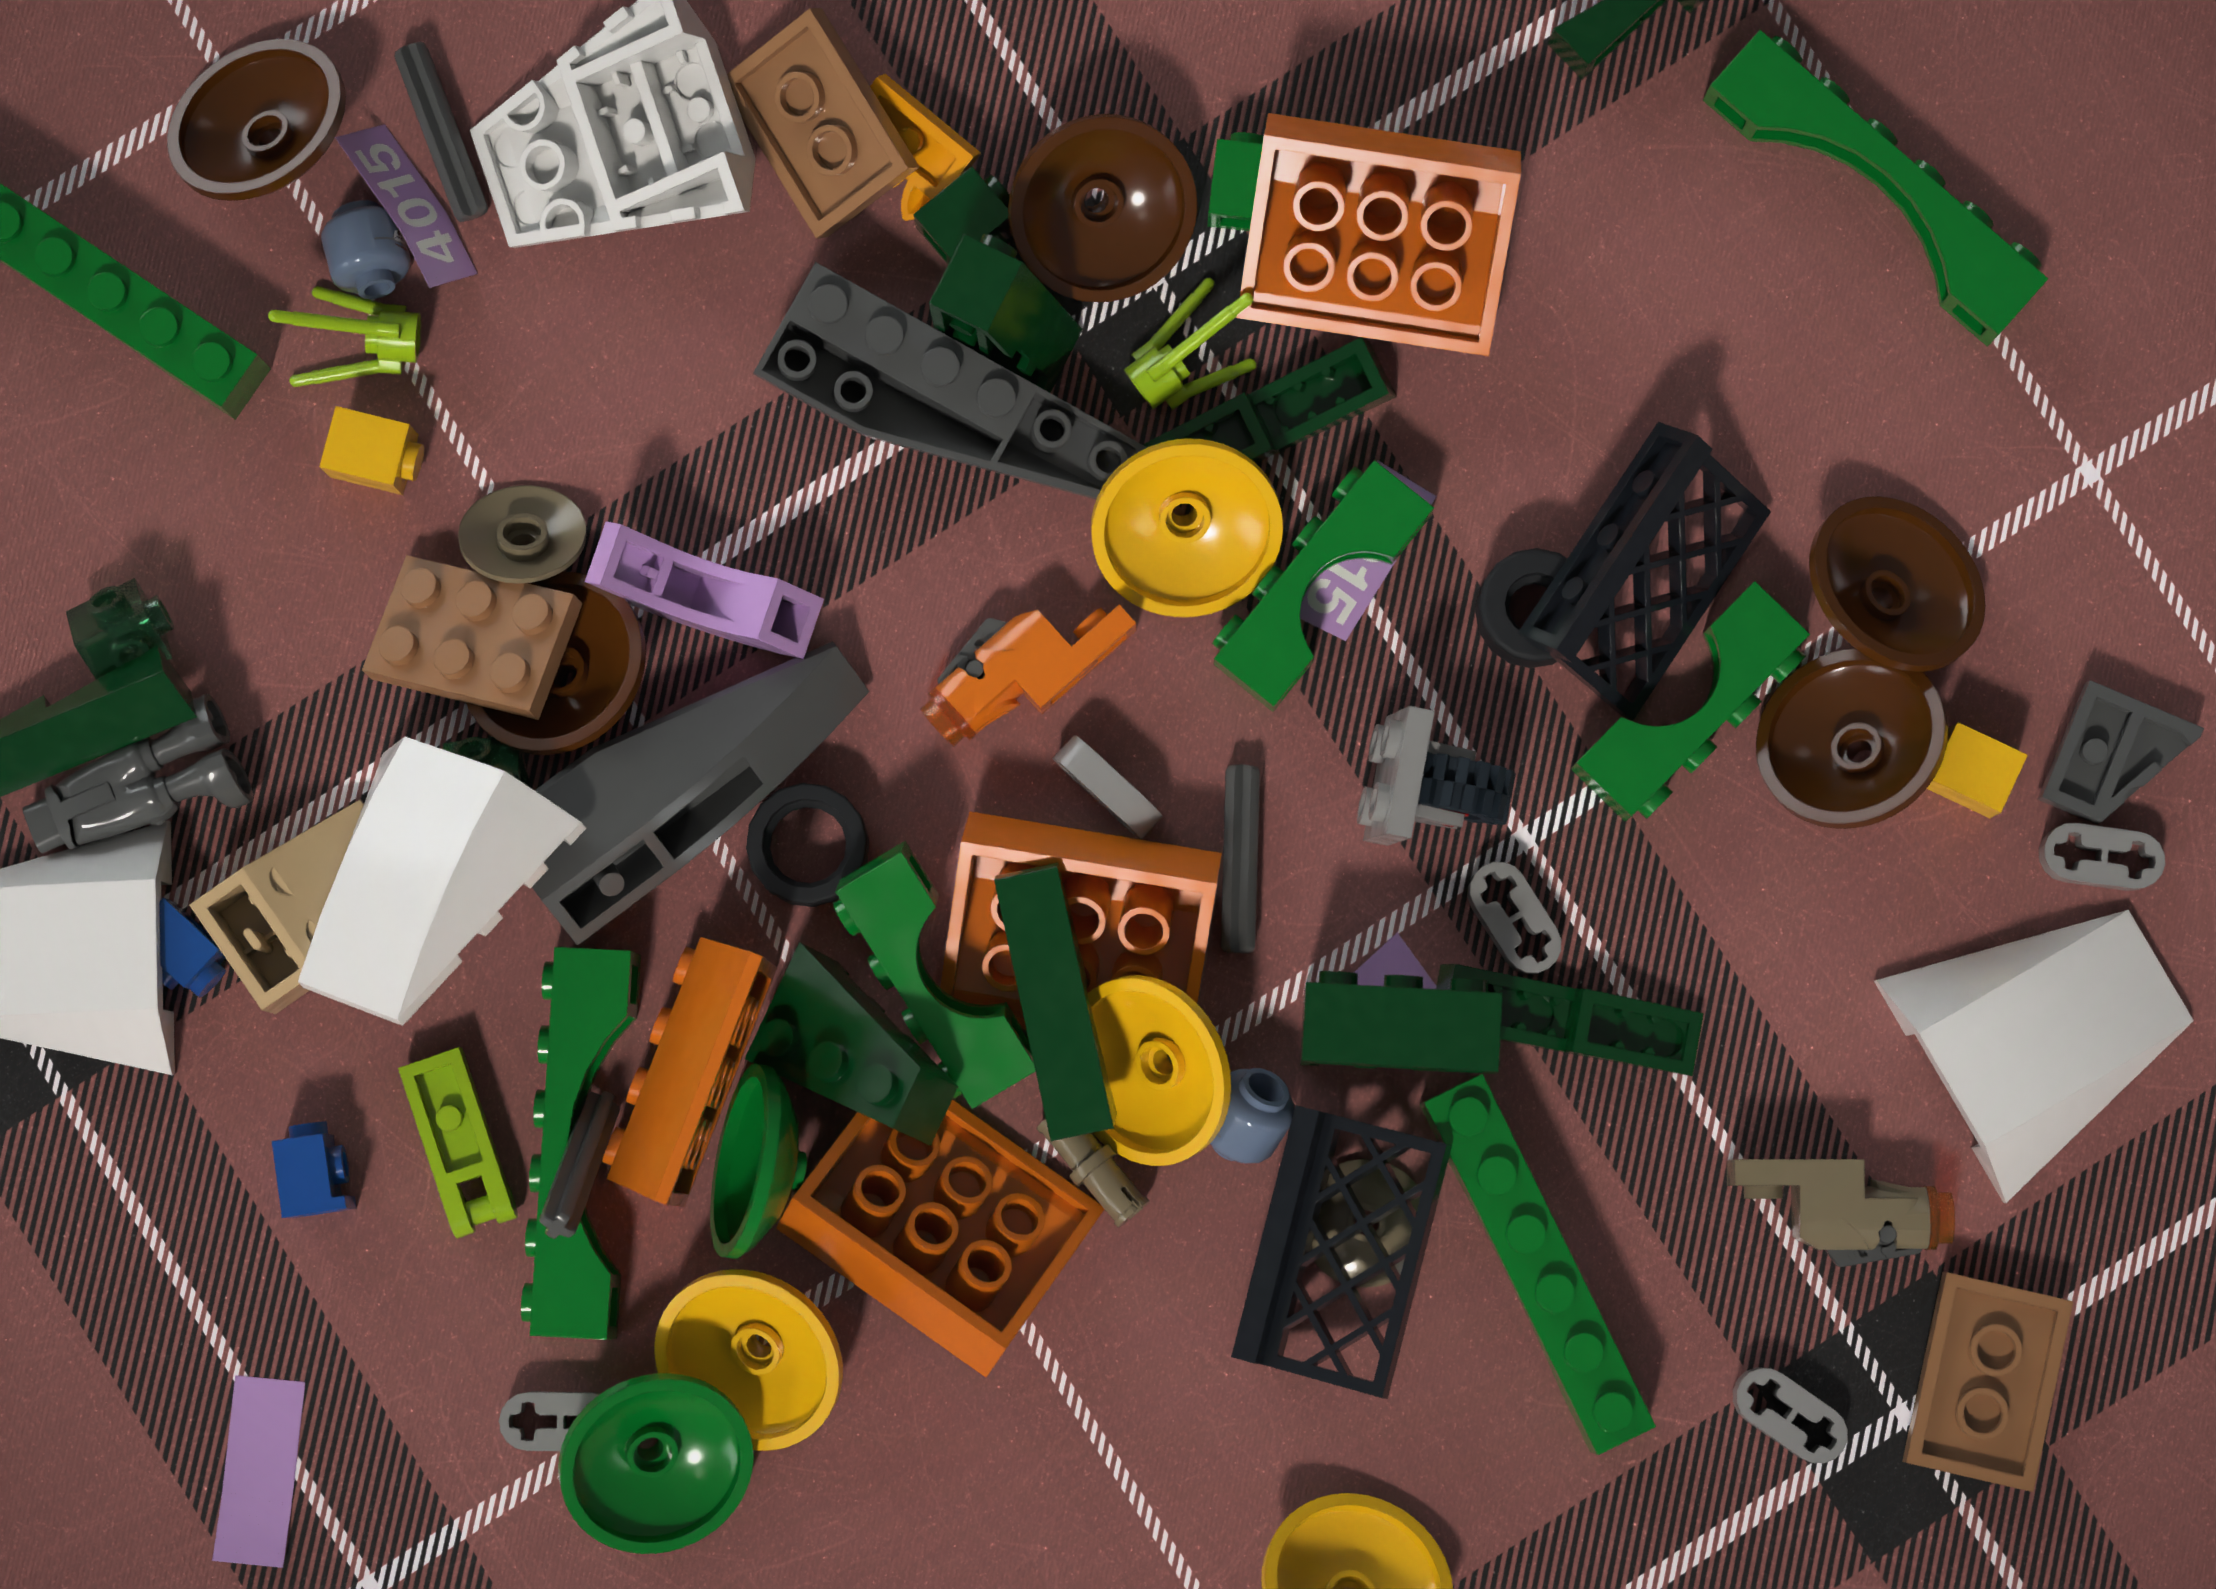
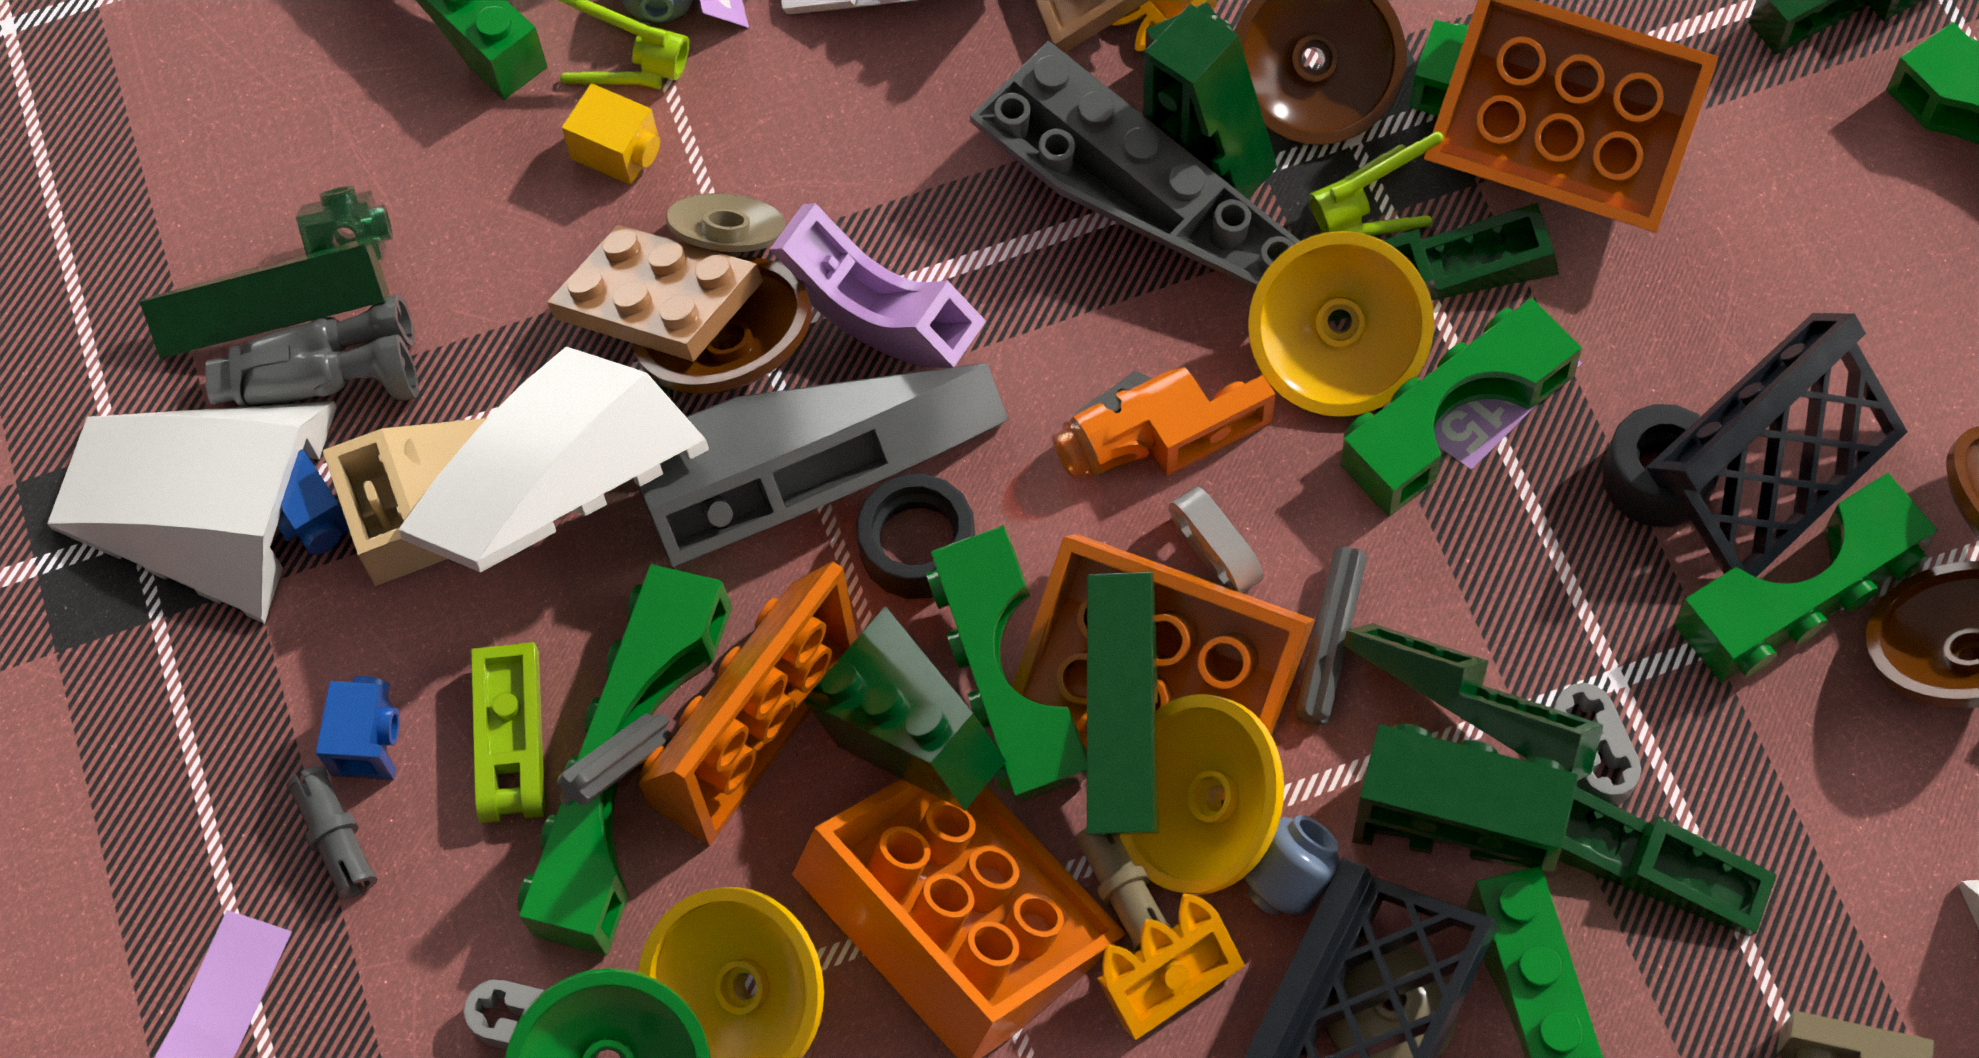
camera: 15 degrees right, 20 degrees down
(316, 1282) = (331, 832): none -> dark grey pin
(754, 1162) = (792, 794): green dish -> none
(1154, 1240) = (1170, 966): none -> light orange plate
(1365, 892) = (1457, 685): none -> dark green slope
(1427, 782) = (1535, 589): light grey plate -> none

